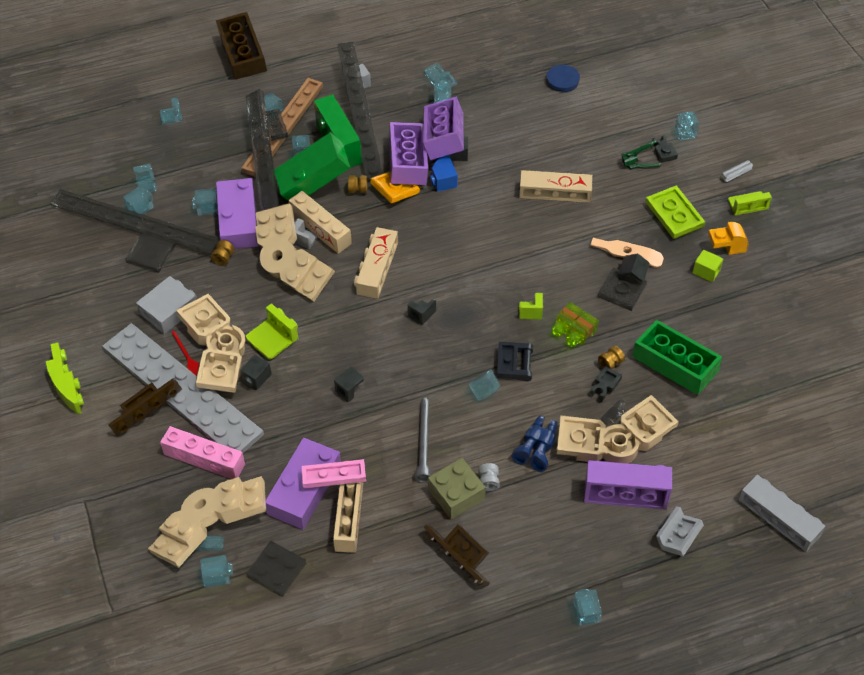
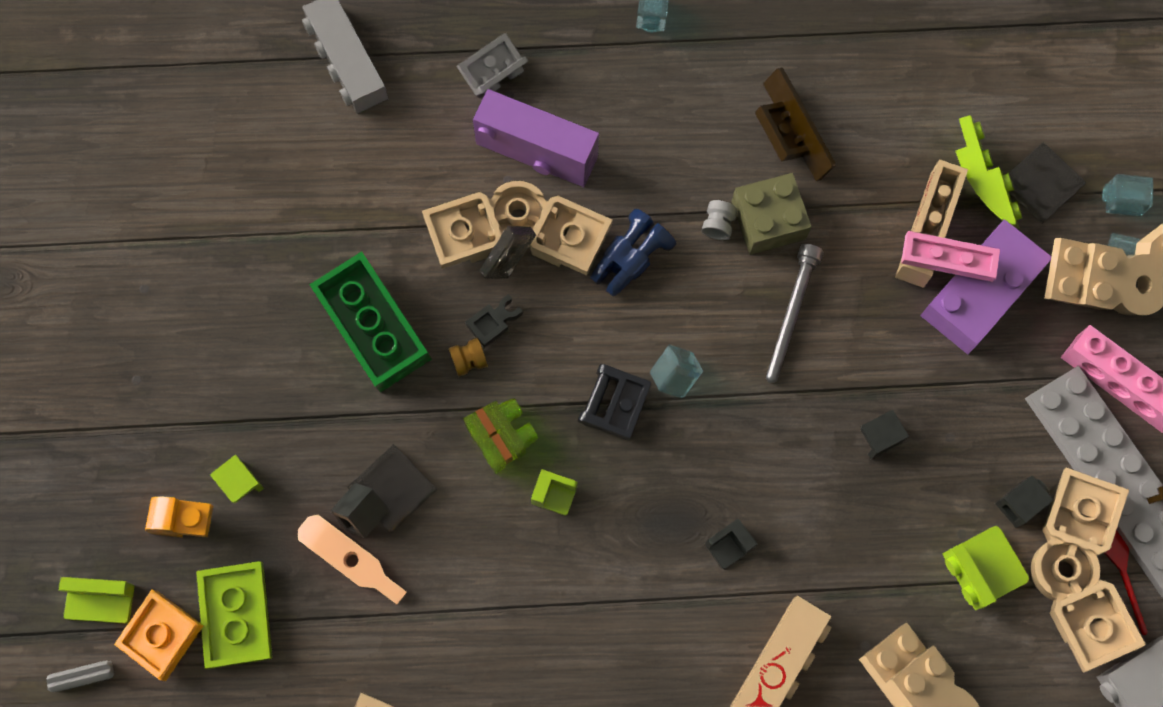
camera: 165 degrees left, 20 degrees up
(318, 548) = (988, 184): none -> lime slope
(708, 193) = (158, 635): none -> light orange plate

